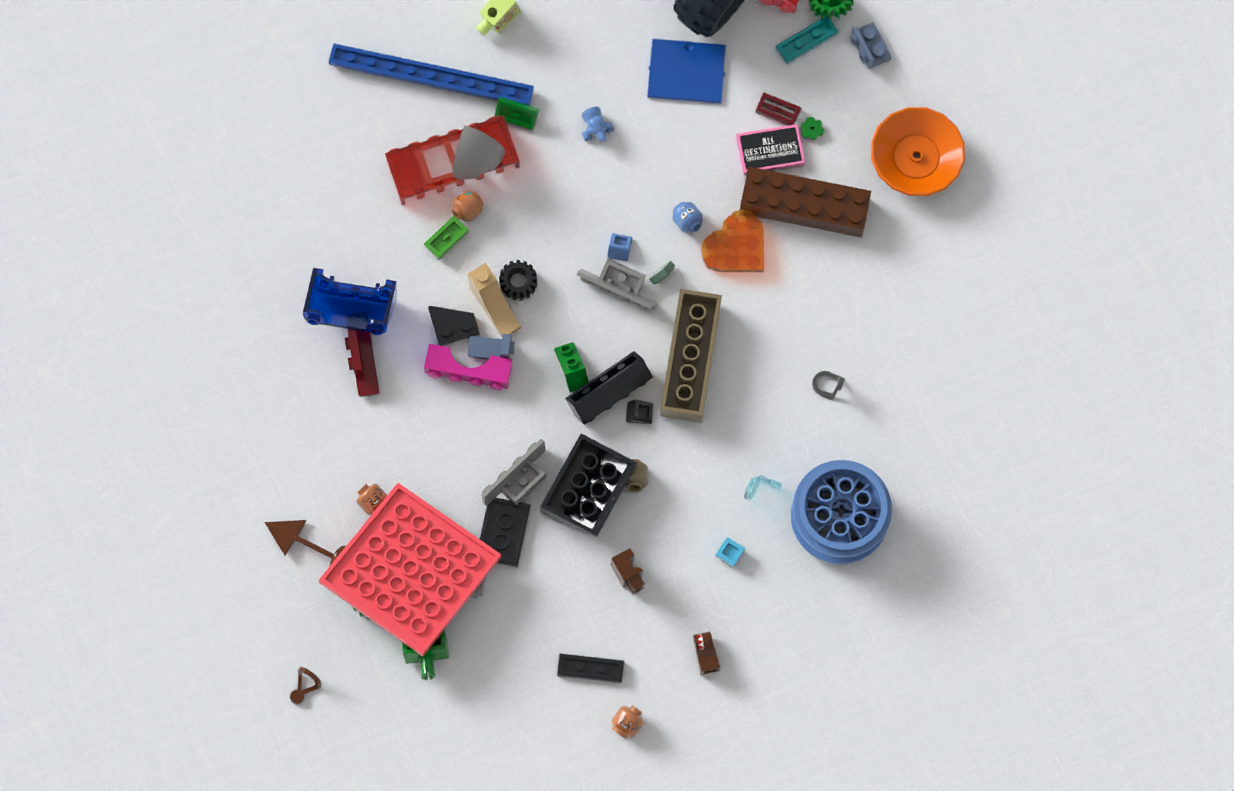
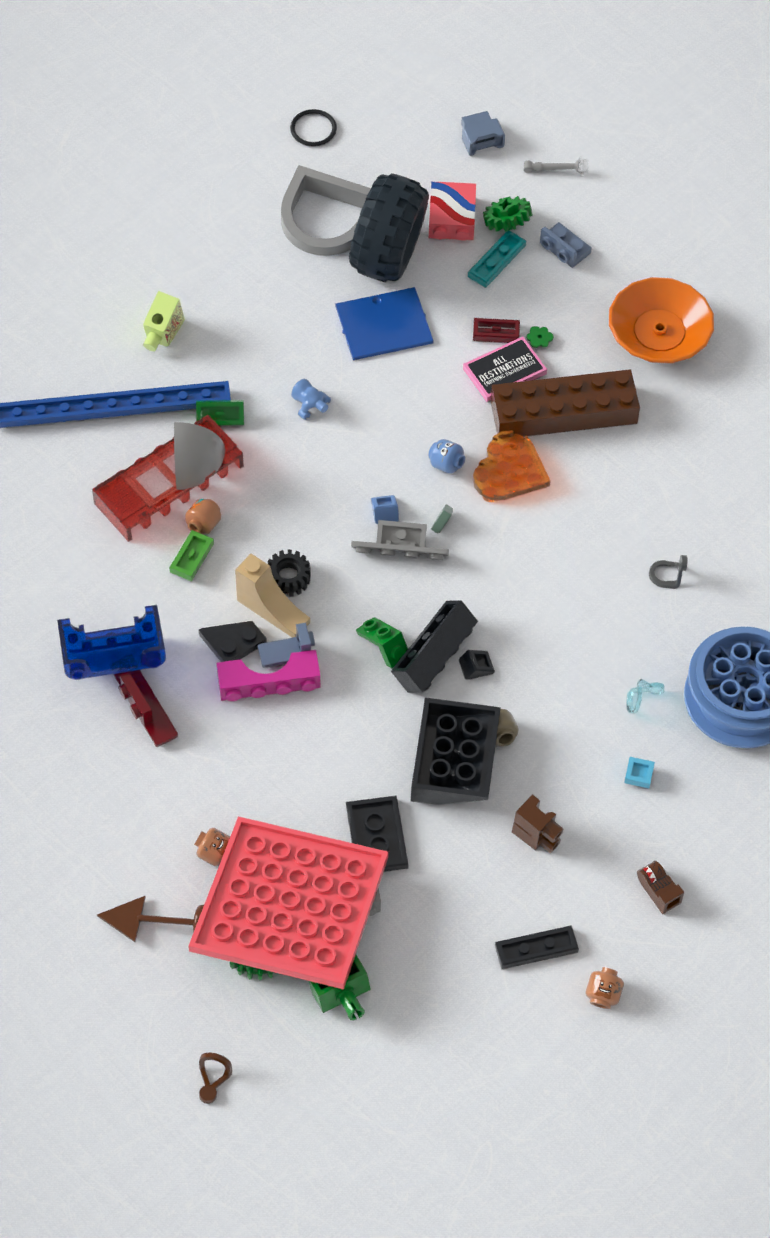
camera: 20 degrees left, 15 degrees down
(519, 478) = (373, 770): light grey bracket -> none
(690, 355) = (510, 587): dark tan brick -> none

